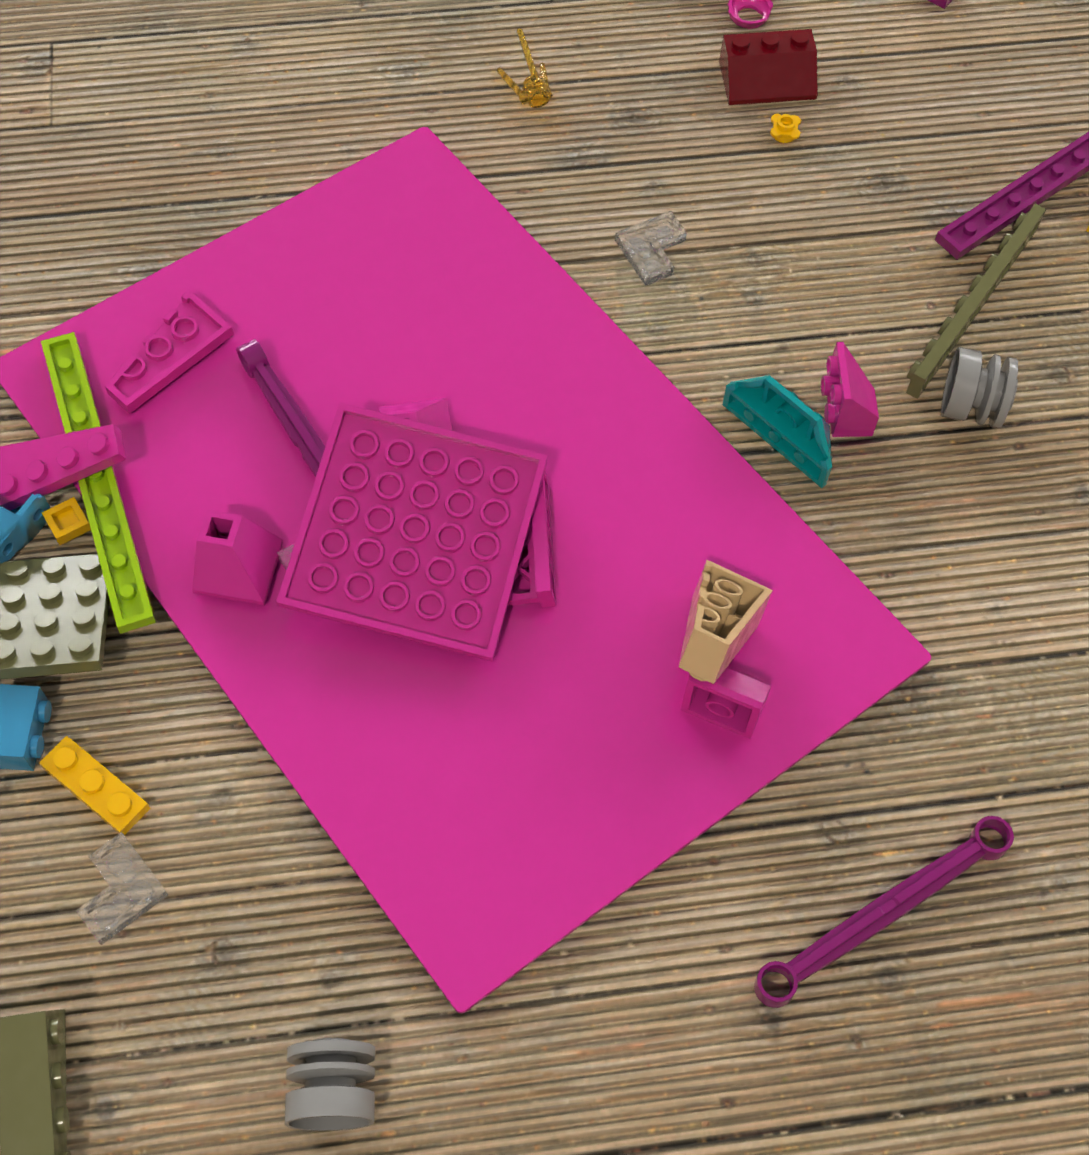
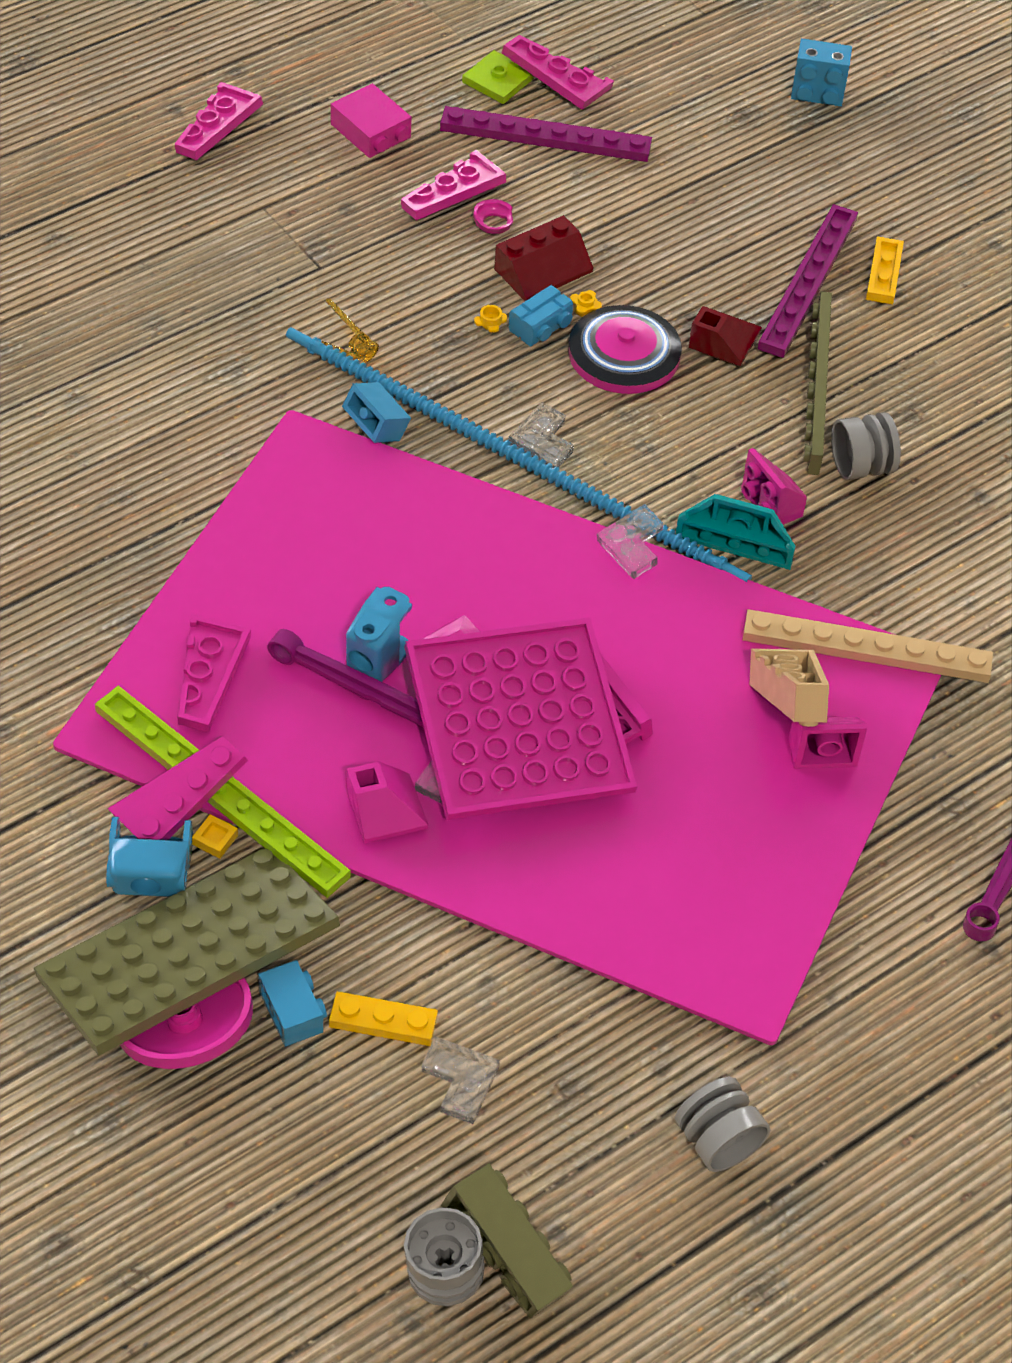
camera: 30 degrees left, 10 degrees down
(330, 378) = (374, 635): none -> dark azure piece
(501, 159) = (376, 412): none -> dark azure brick
(621, 264) = (315, 346): none -> dark azure hose
(662, 383) = (626, 540): none -> clear plate
(680, 108) = (490, 318): none -> yellow plate
(729, 123) = (541, 316): none -> dark azure brick
(796, 189) = (624, 349): none -> dish
(848, 611) = (868, 646): none -> tan plate
(904, 210) = (722, 335): none -> dark red slope

